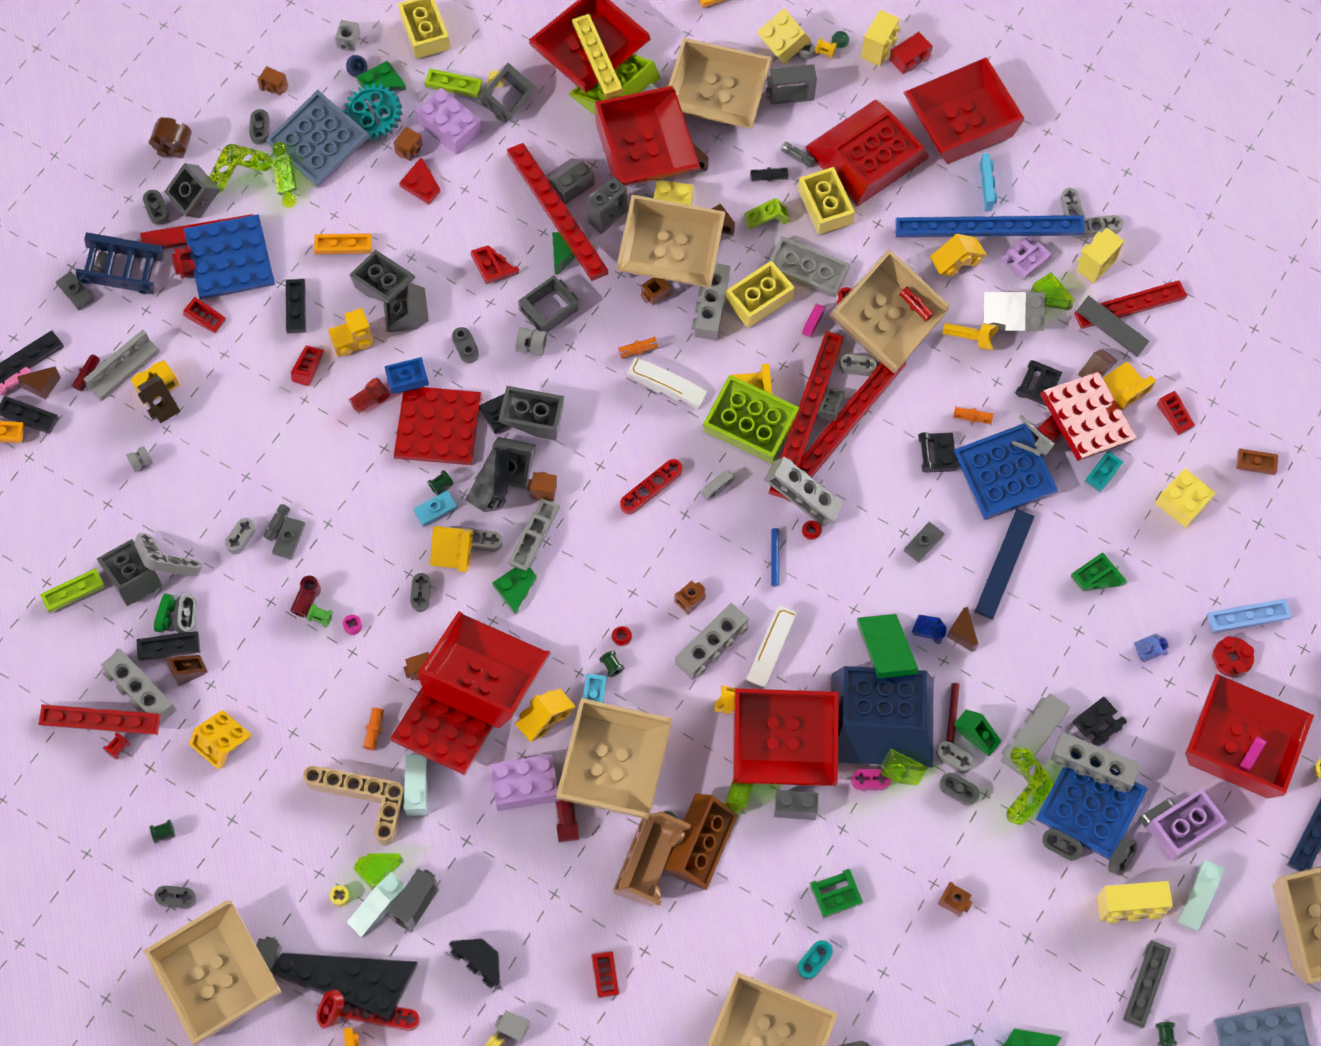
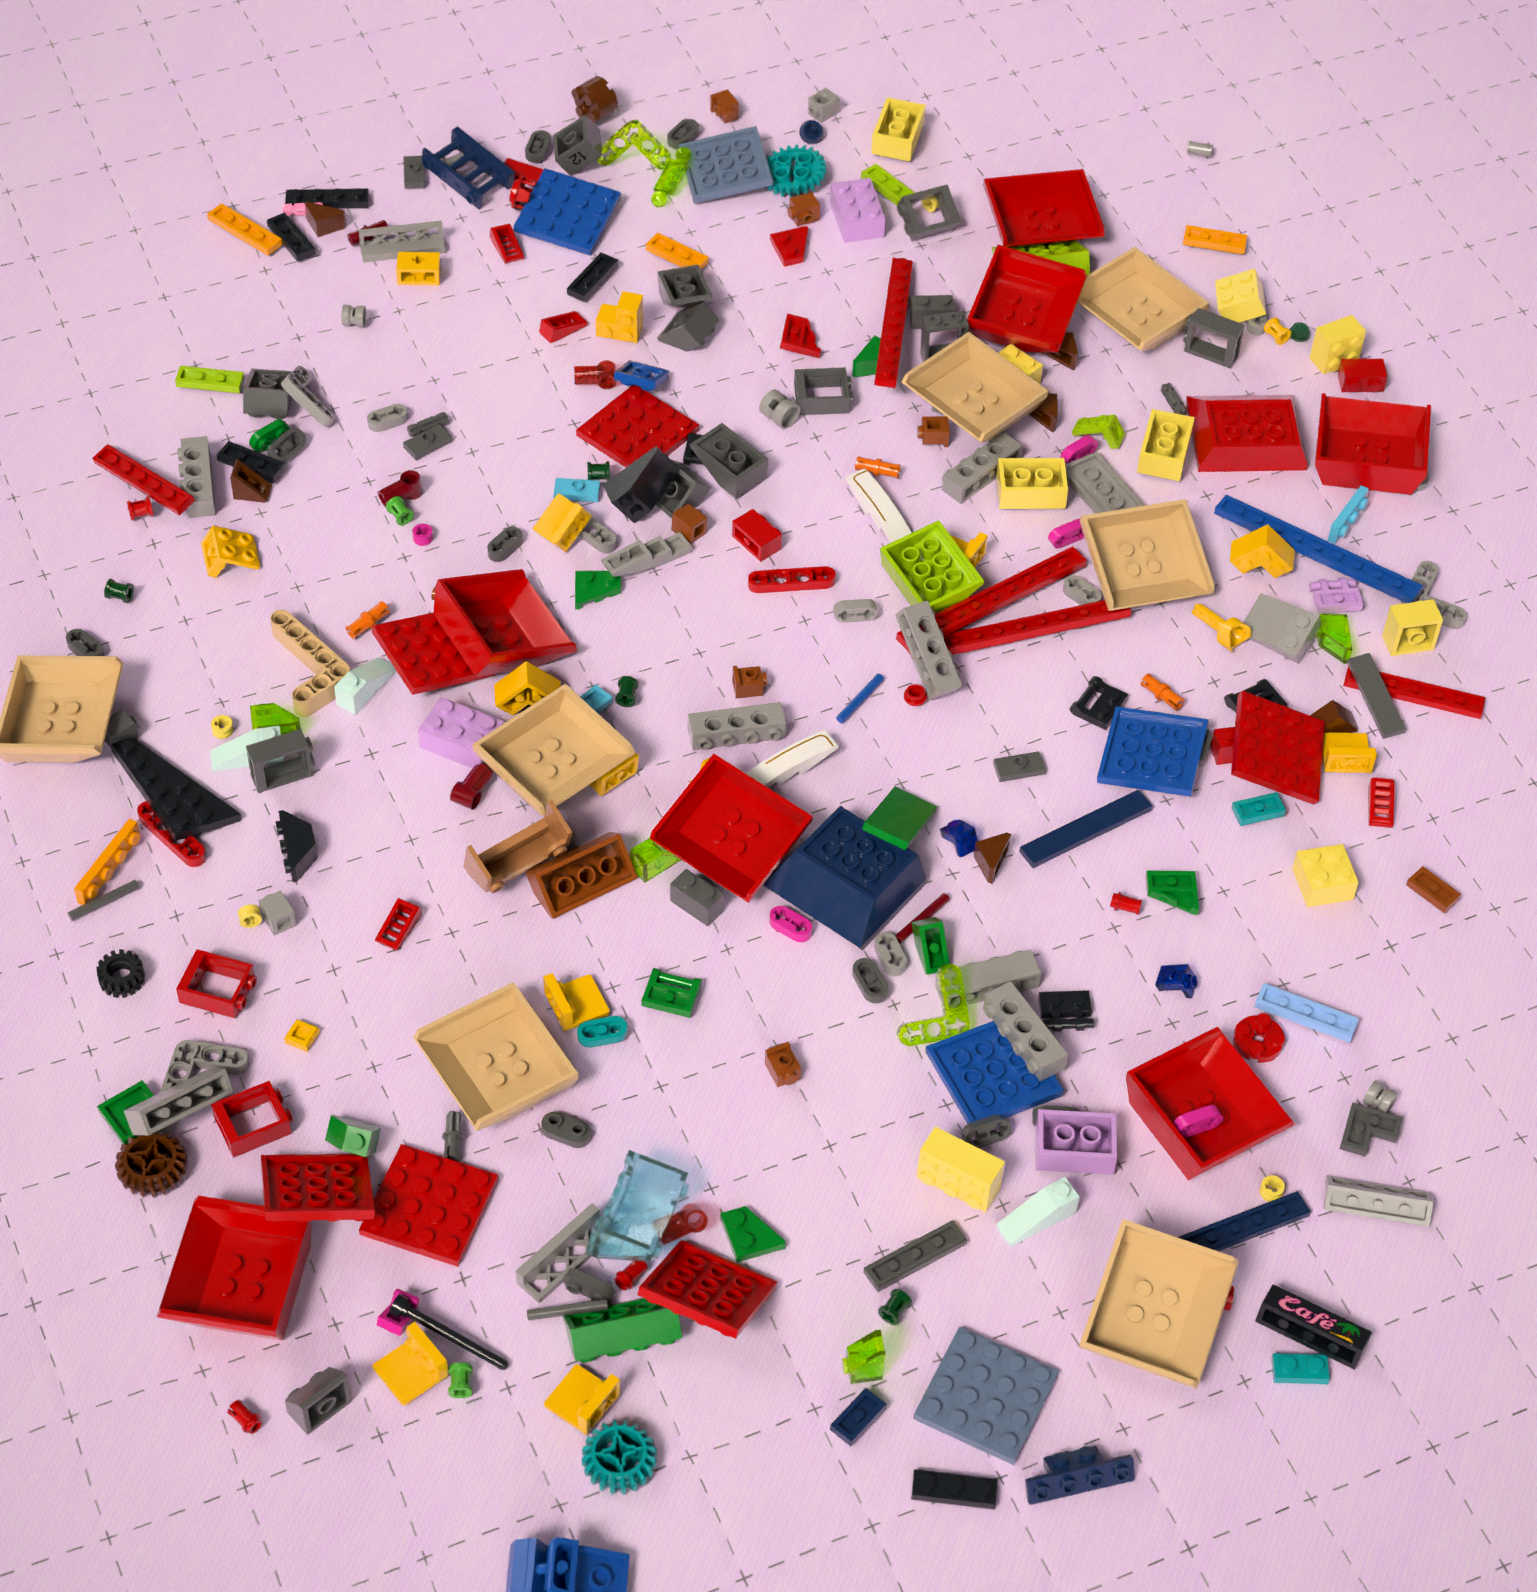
camera: 35 degrees right, 15 degrees down
(166, 407) = (413, 289): dark brown brick -> none
(329, 1008) = (128, 803): red plate -> none
(381, 74) = (830, 149): green wing -> none
(465, 343) = (718, 384): dark grey plate -> none
(597, 56) = (1039, 220): light yellow plate -> none
(599, 464) = (757, 535): none -> red brick
(621, 630) = (656, 676): red plate -> none
(767, 242) = (1079, 449): none -> dark pink beam
(769, 174) = (1130, 400): black pin -> none
(778, 947) = (574, 1000): none -> yellow bracket
(831, 404) = (1024, 606): dark grey plate -> none
(902, 769) = (826, 927): clear neon green slope -> none
(916, 304) = (1179, 562): red pin -> none
(1043, 443) = (1207, 740): light grey plant -> none
(1062, 844) = (933, 1087): dark grey plate -> none
(1072, 609) = (1125, 903): none -> red pin

